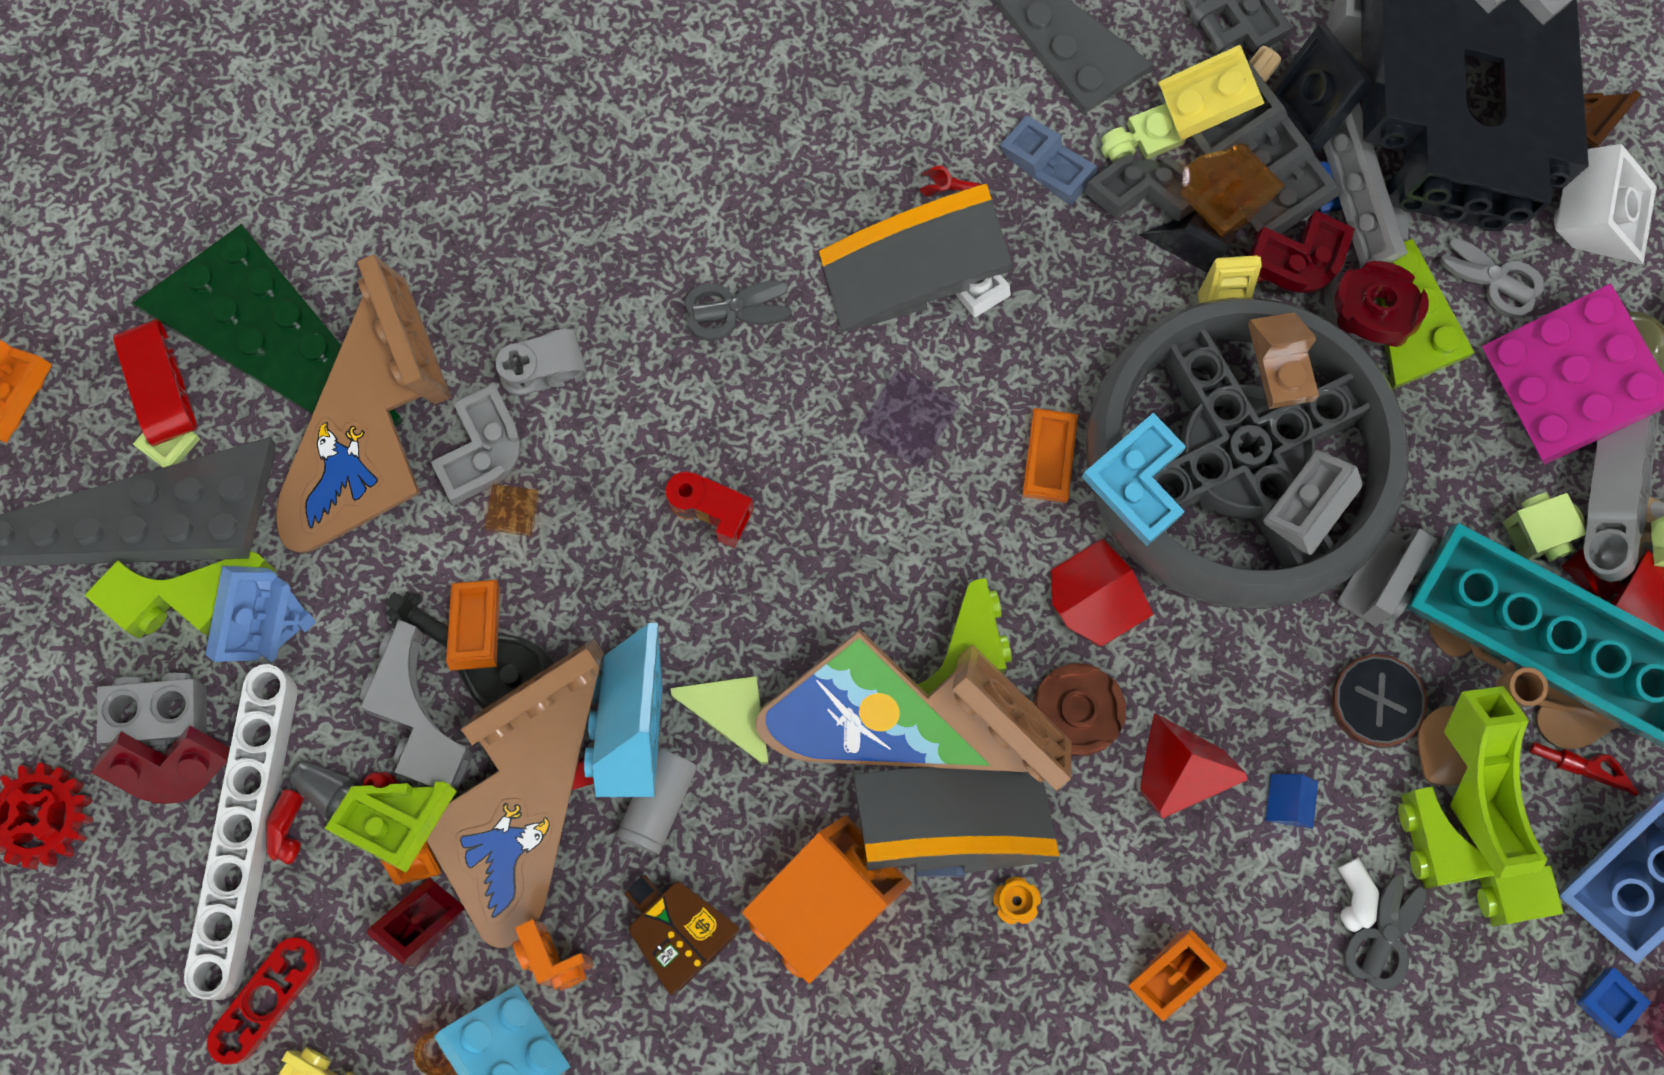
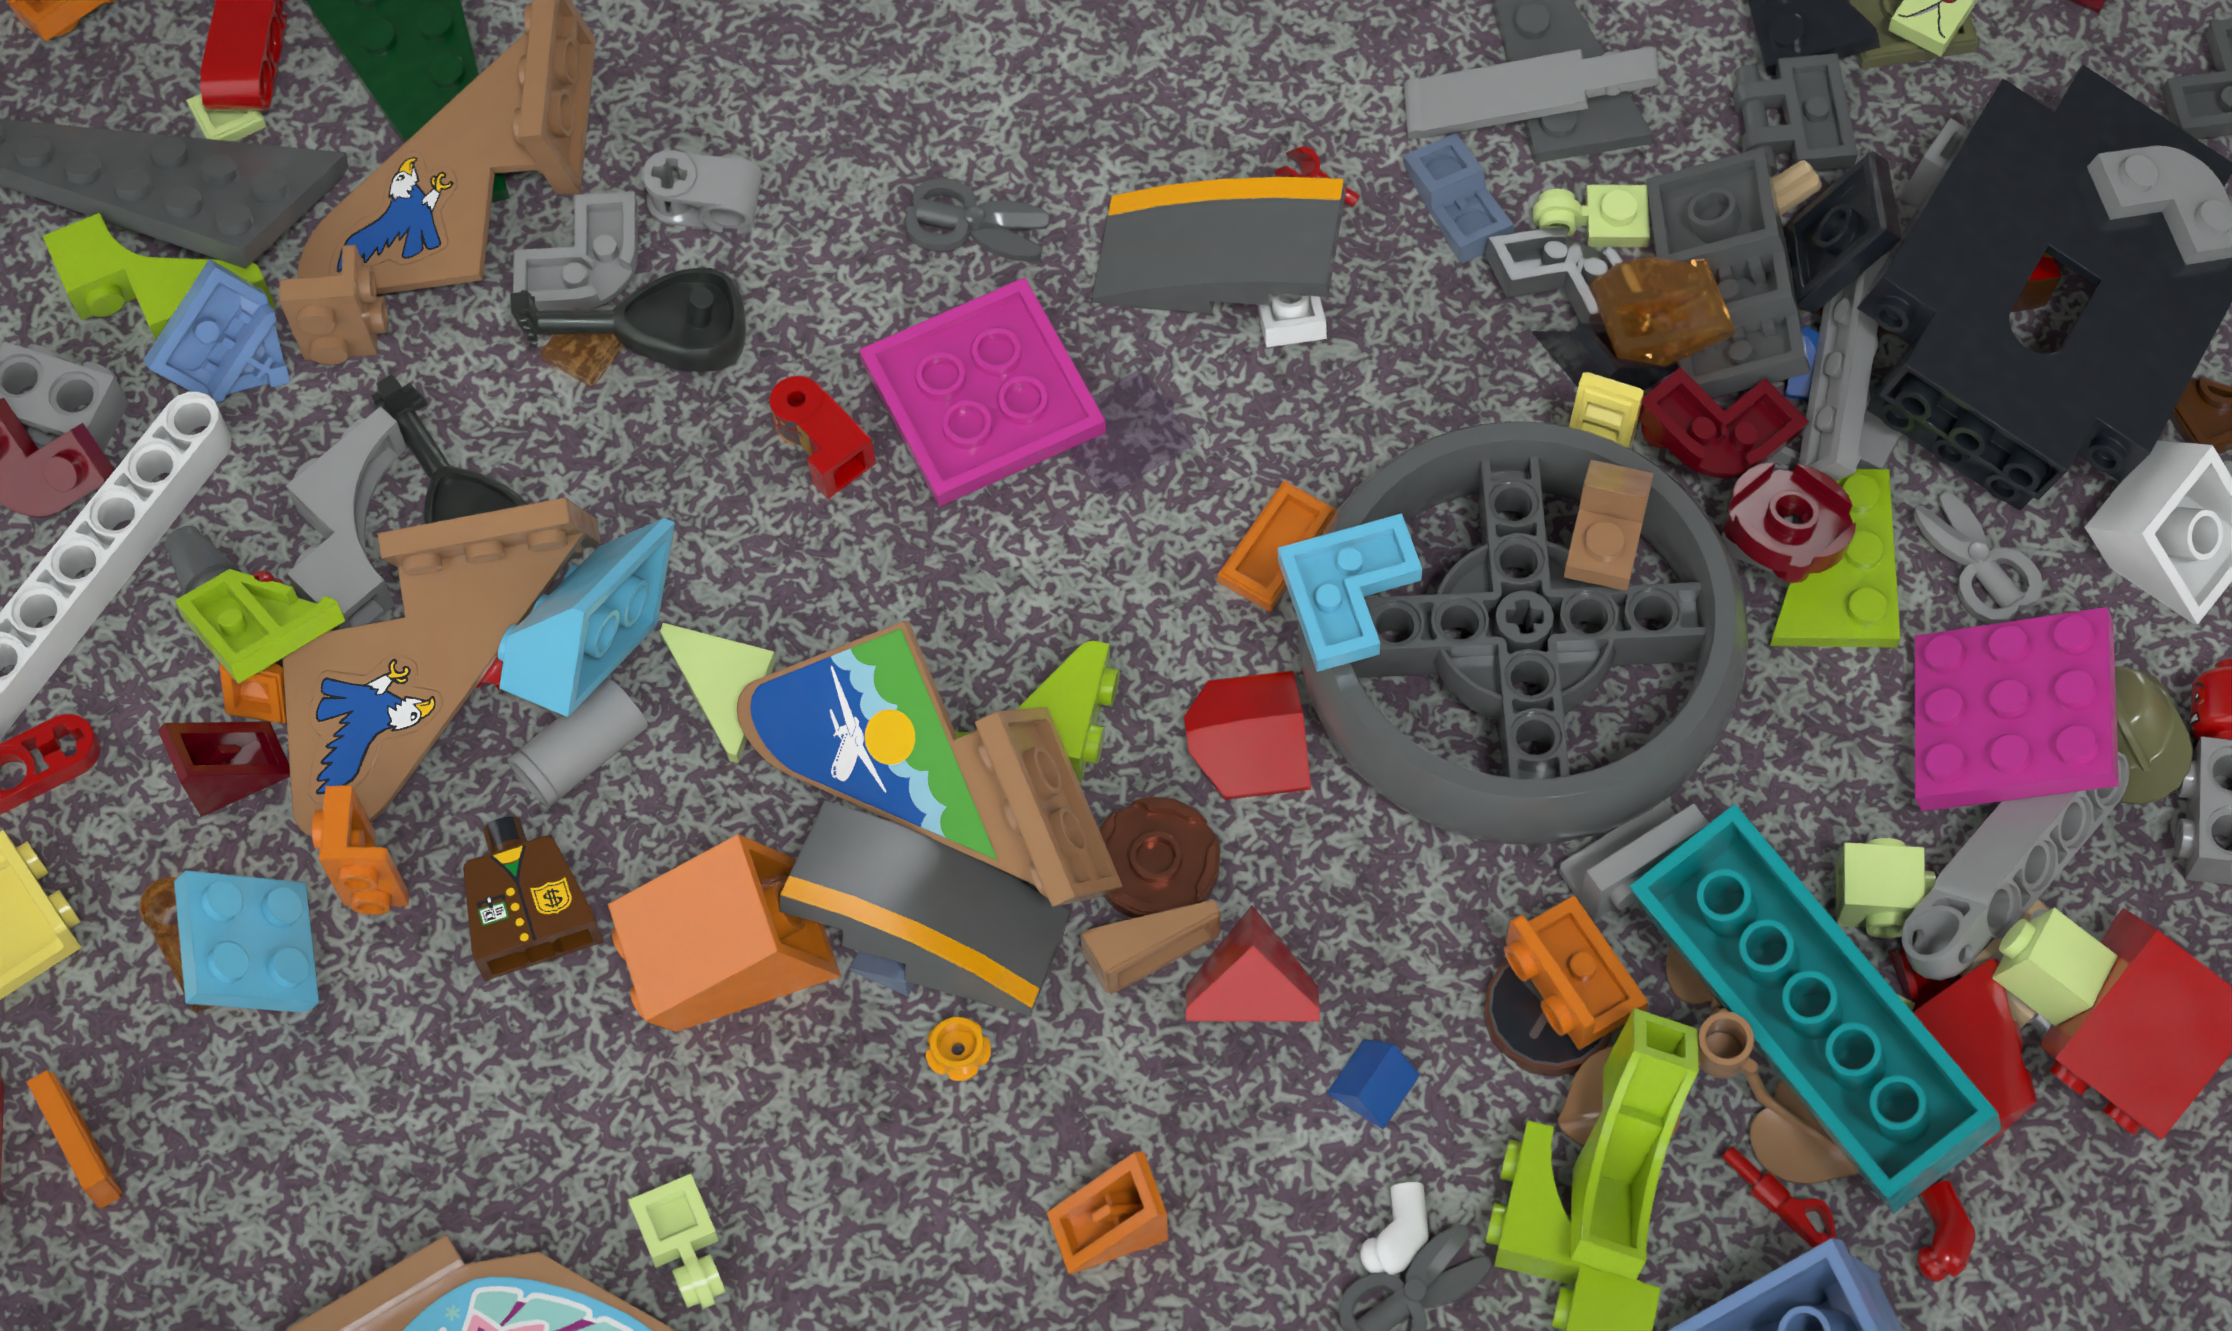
camera: 30 degrees right, 10 degrees down
(278, 824) = (124, 588): red arm -> none
(333, 566) = (336, 313): none -> medium nougat bracket
(473, 625) = (467, 453): orange tile -> none
(569, 464) = (680, 319): none -> pearl dark grey piece
(803, 429) = (982, 391): none -> dark pink plate
(1058, 68) = (1522, 90): none -> light grey piece
(1098, 783) = (1139, 946): none -> medium nougat slope
(1211, 92) = (1699, 187): light yellow plate -> none
(1314, 501) = (1562, 707): light grey slope -> none
(1392, 674) = (1574, 971): none -> orange bracket

